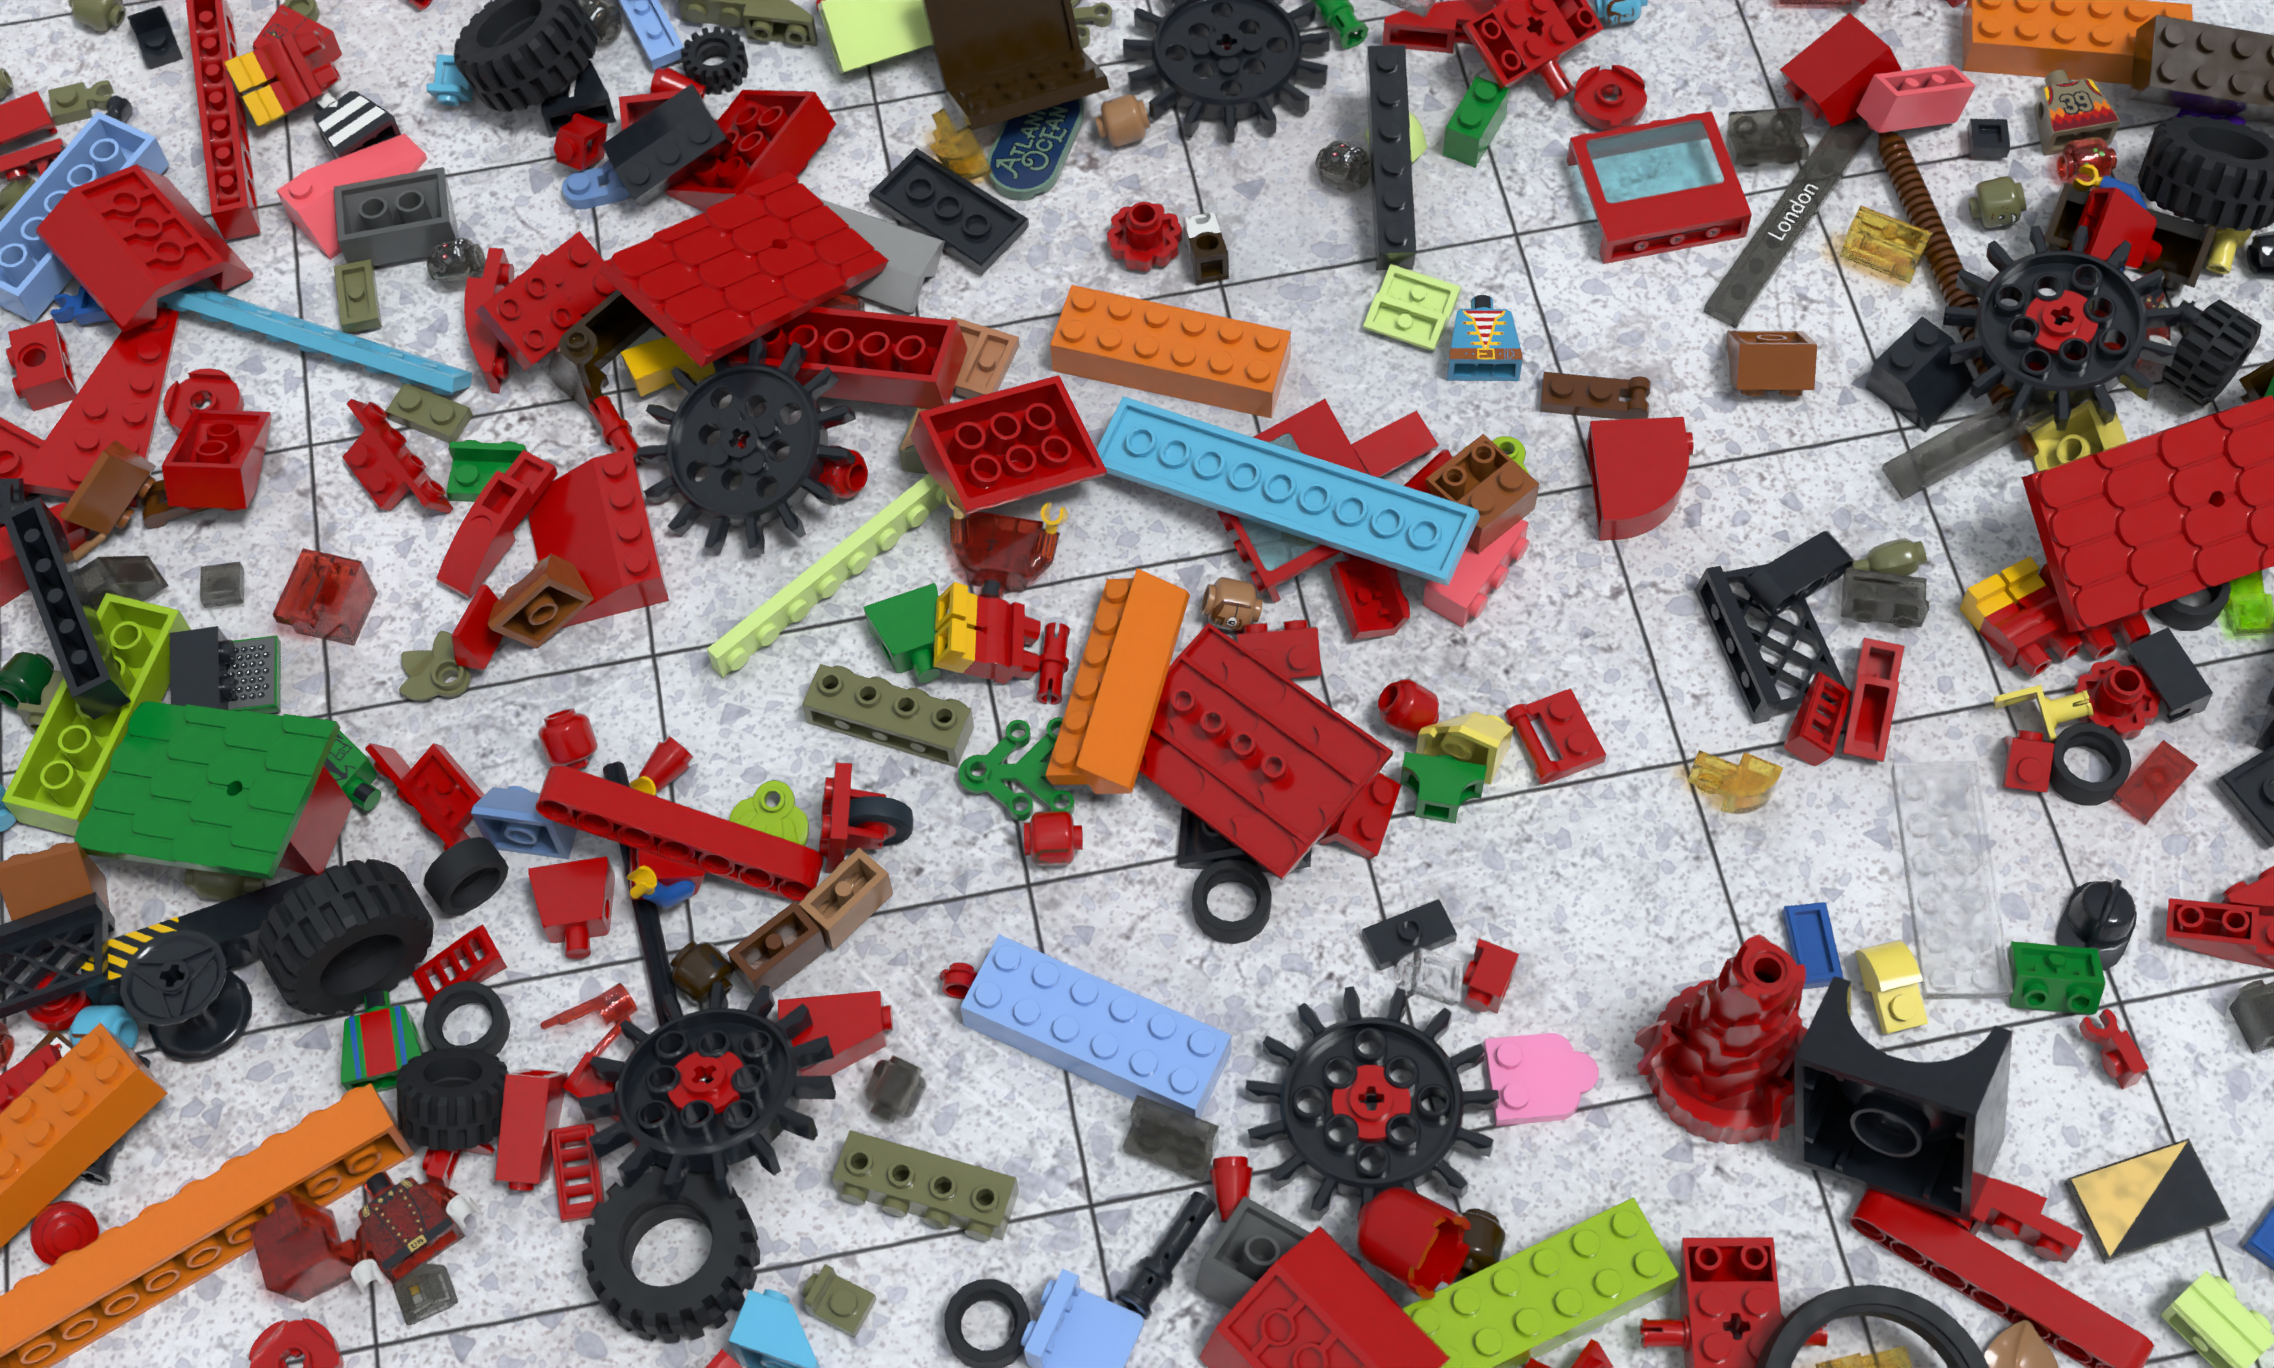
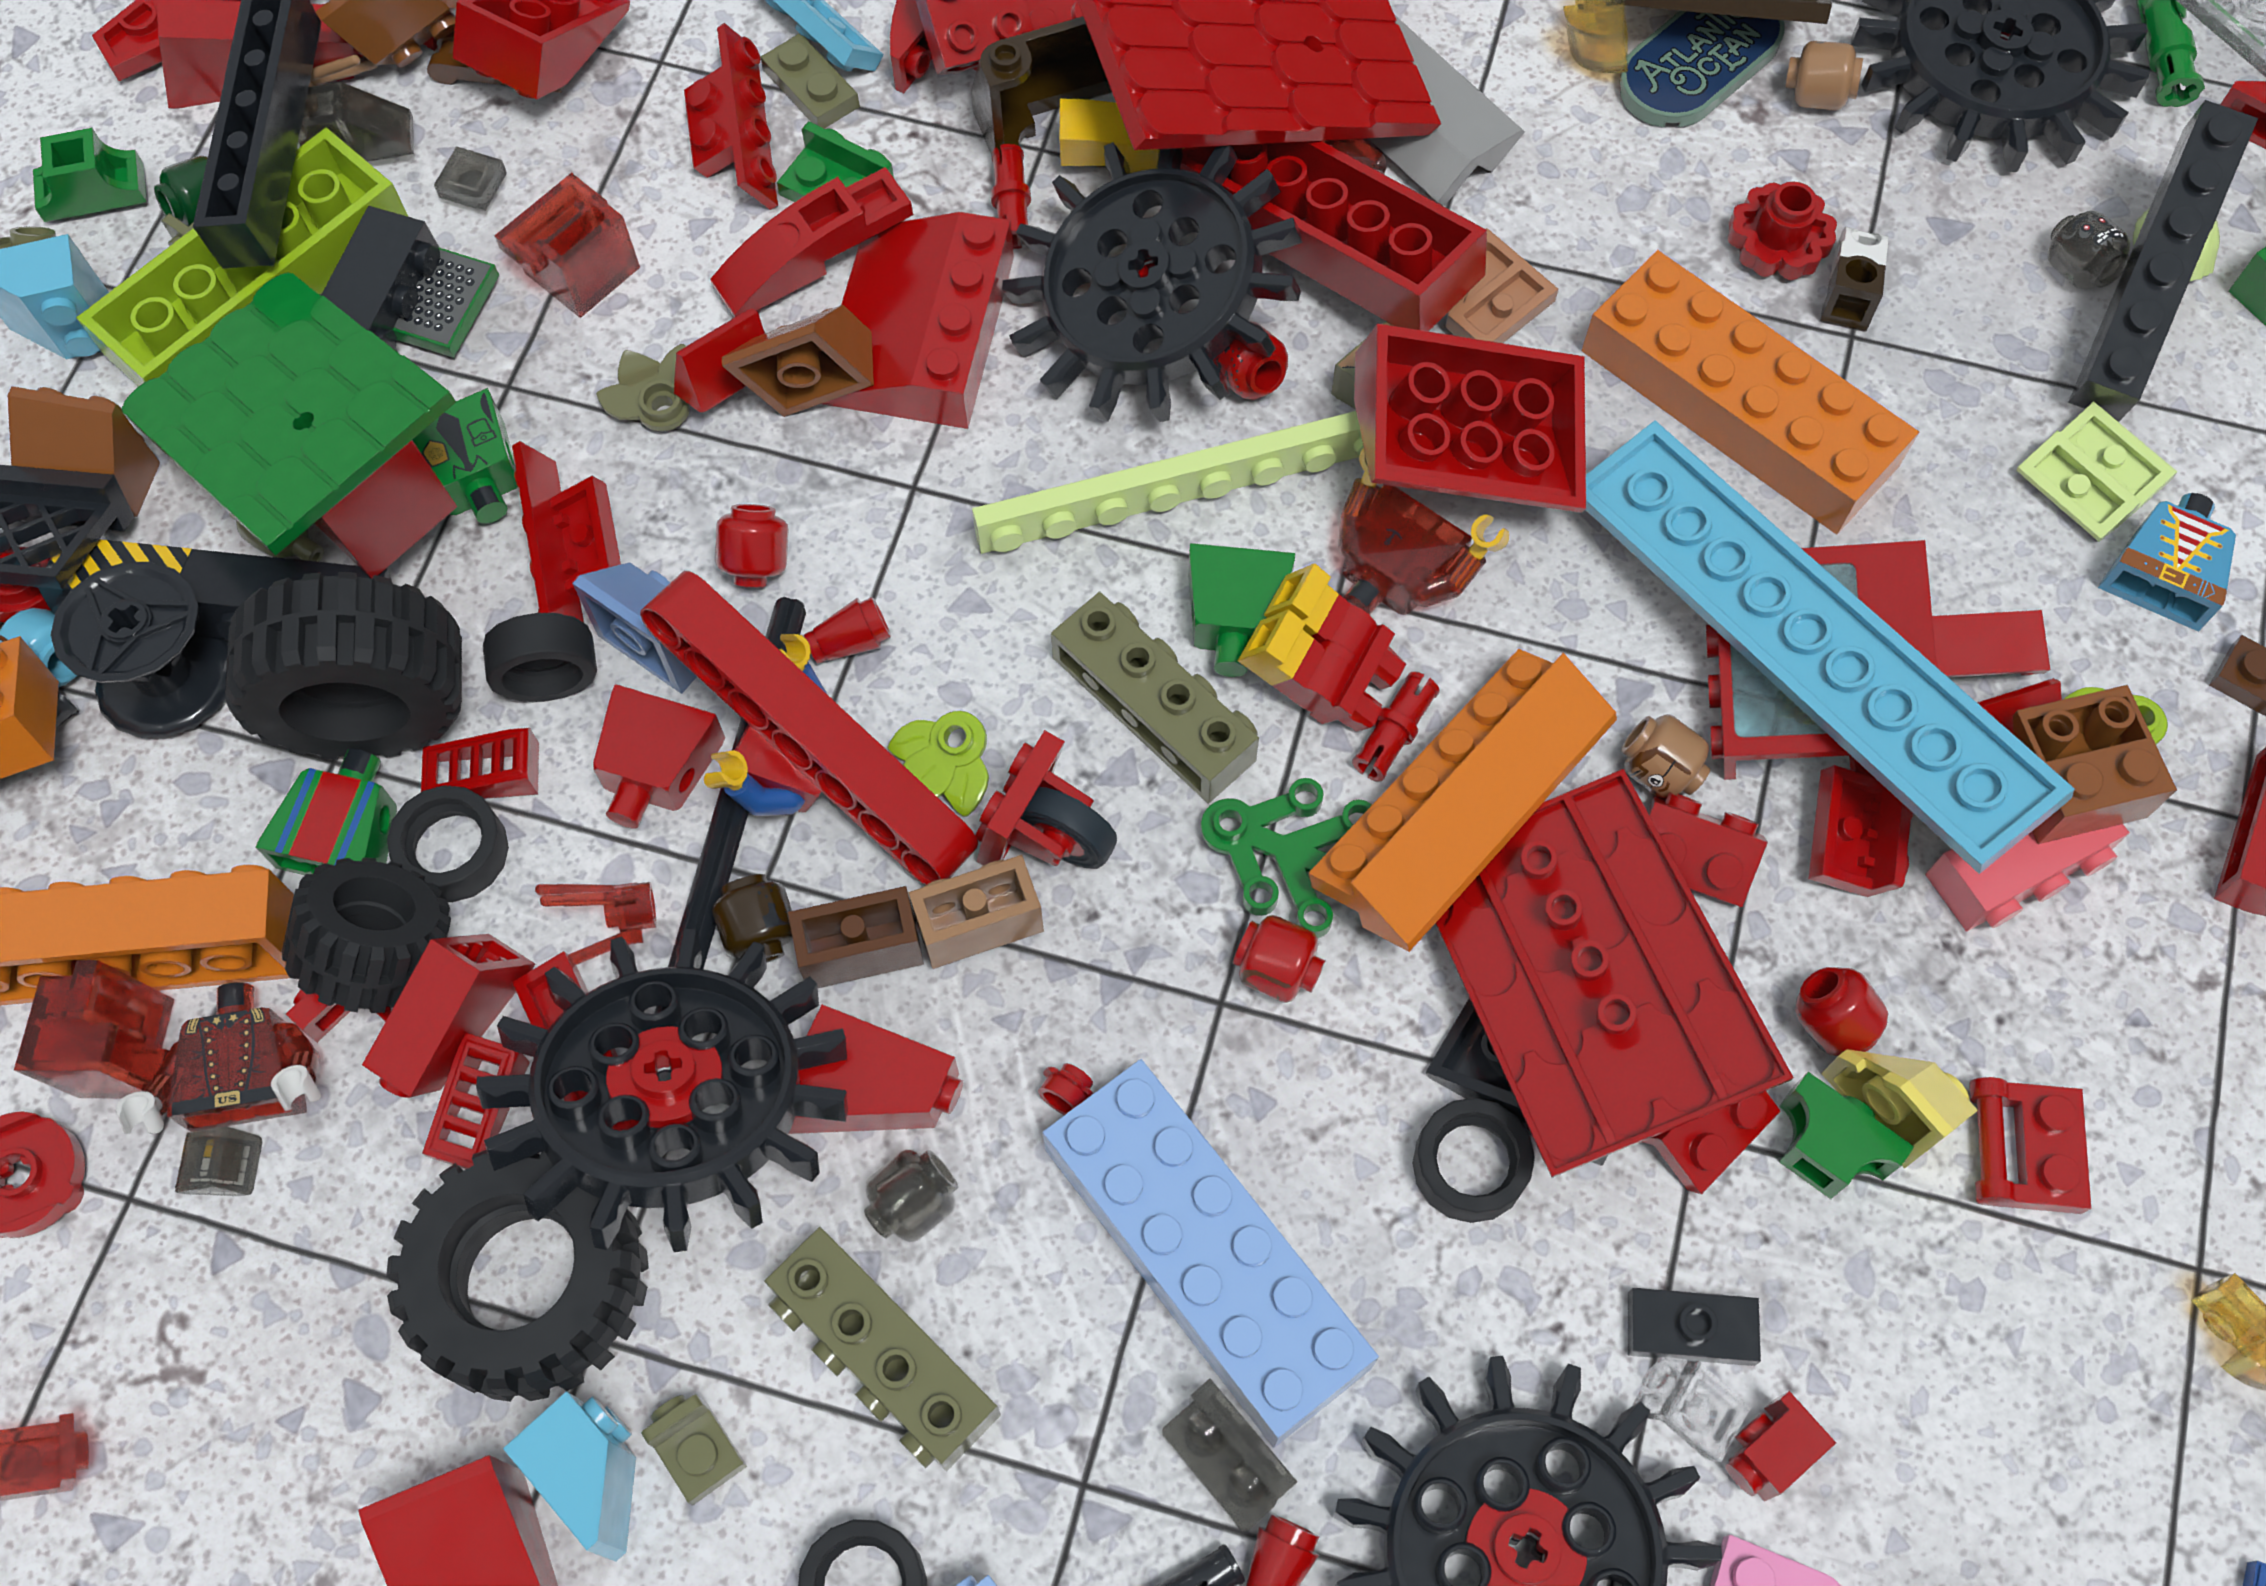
camera: 25 degrees right, 5 degrees up
(949, 208) = (1552, 95): black plate -> none

